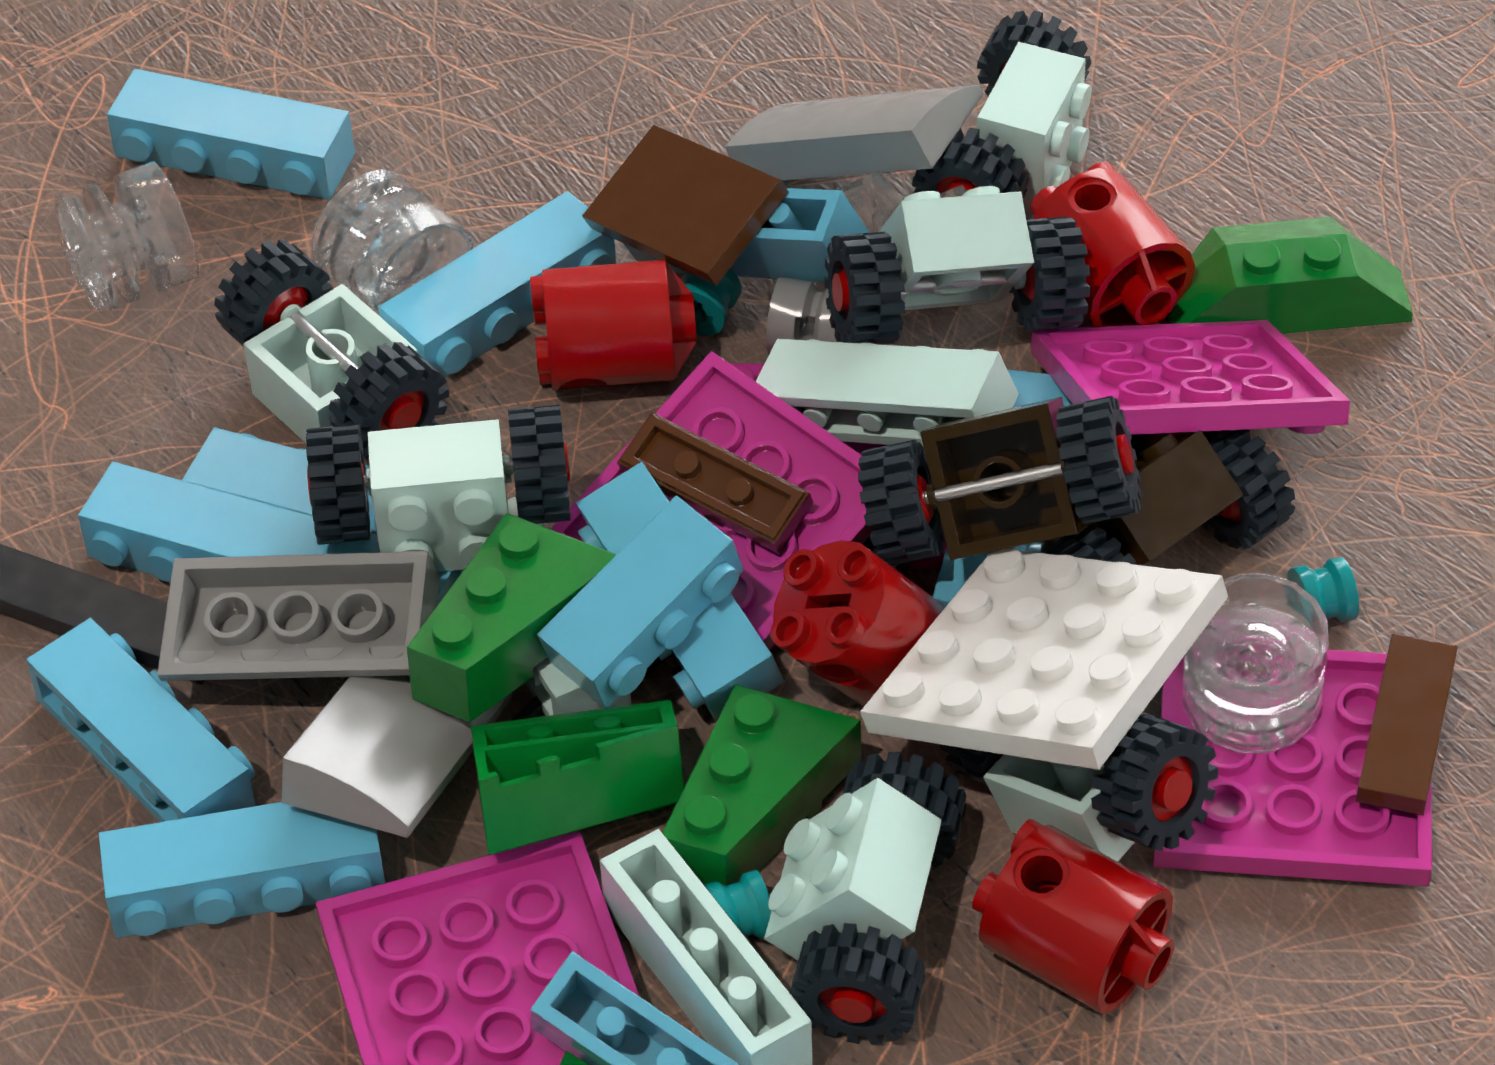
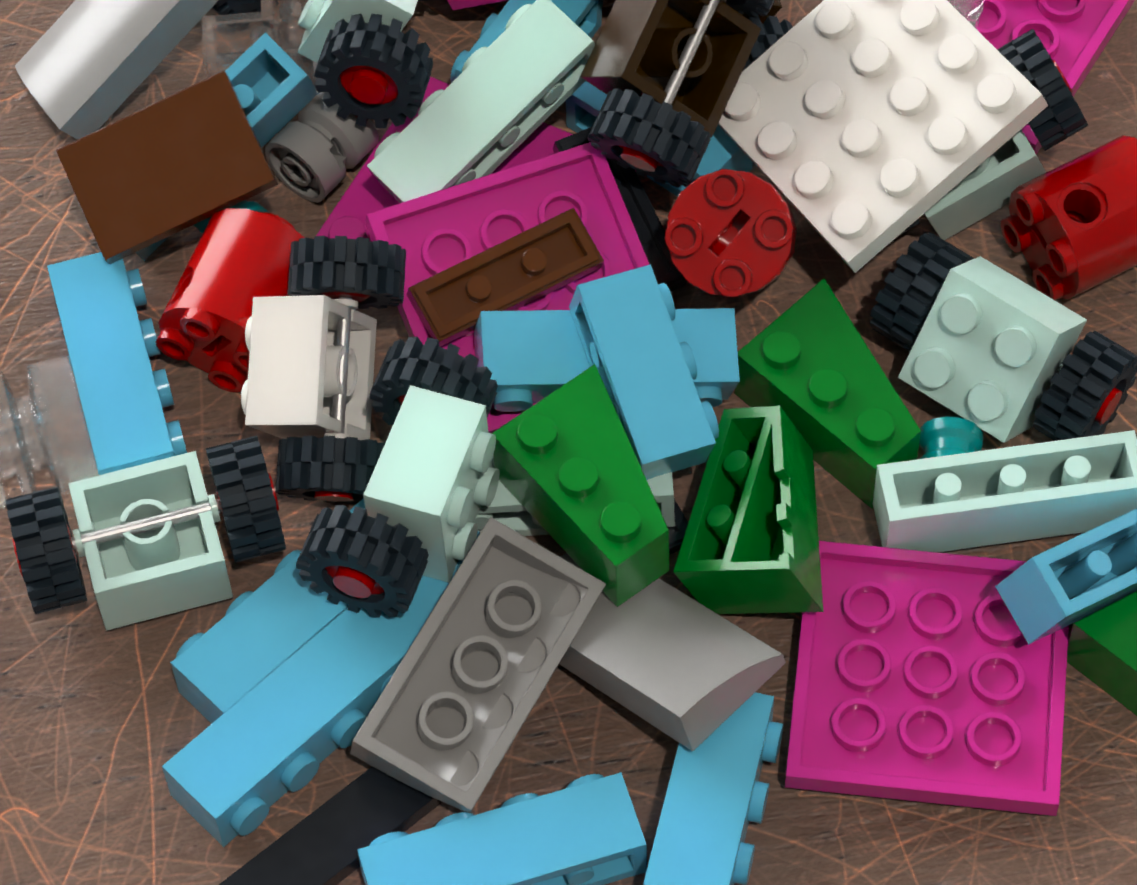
camera: 65 degrees left, 10 degrees up
(549, 363) = (317, 364): none -> brick

